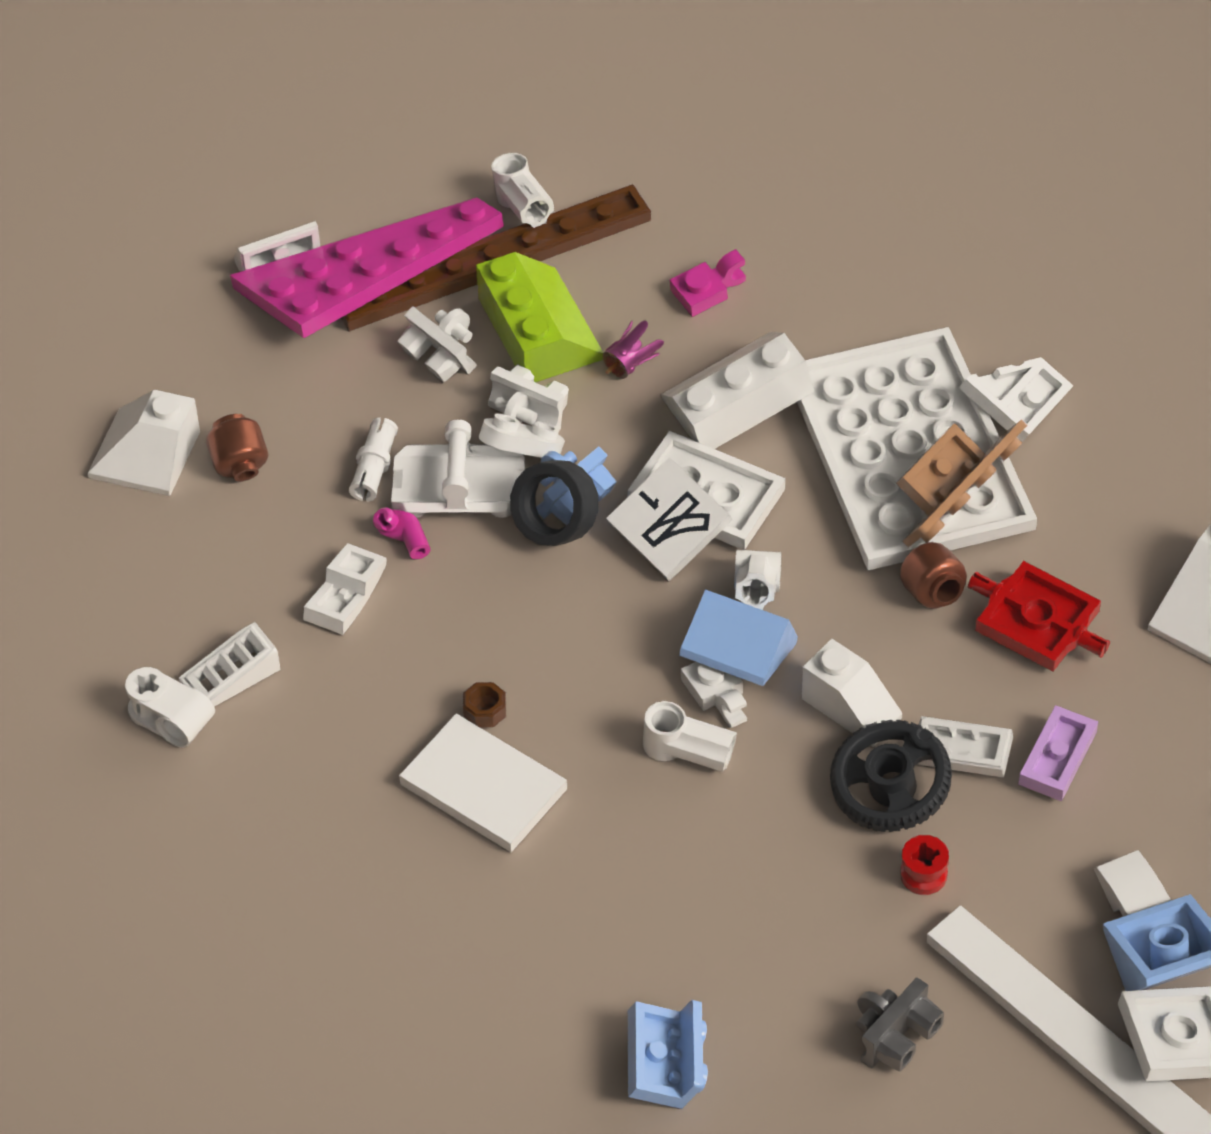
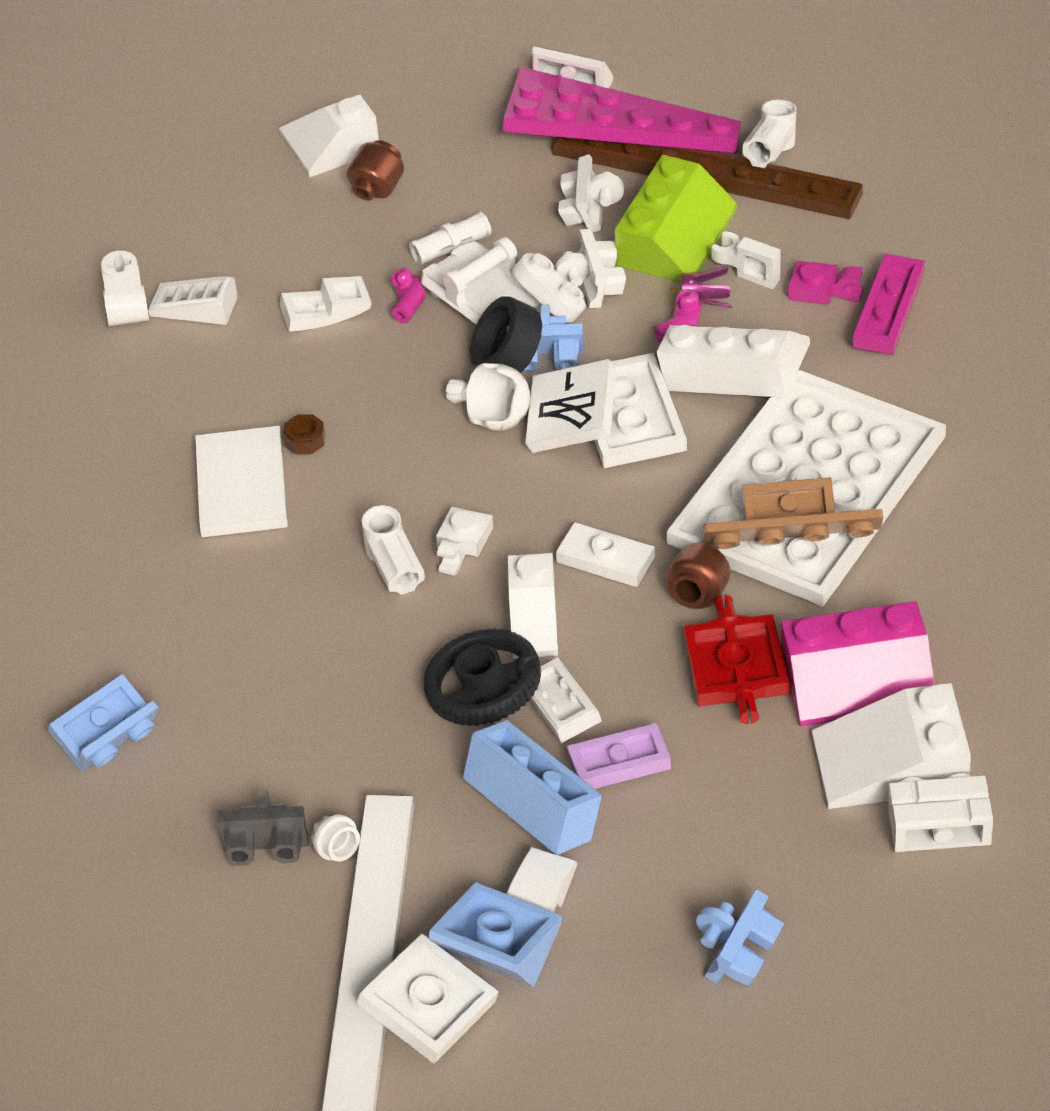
camera: 50 degrees right, 5 degrees down
(599, 557) = (494, 396): none -> white hair
(640, 302) = (753, 259): none -> white plate
(645, 387) = (686, 312): none -> dark pink arm
(738, 638) = (504, 512): light blue slope -> none
(757, 577) = (573, 484): white piece -> none
(780, 265) = (888, 304): none -> dark pink plate
(837, 614) = (605, 554): none -> white plate
(918, 875) = (426, 751): red wheel -> none
(950, 982) = (335, 837): none -> white plate
(1018, 393) = (930, 506): white wing -> none
(1045, 823) = (532, 787): none -> light blue brick
(1126, 548) = (854, 659): none -> slope

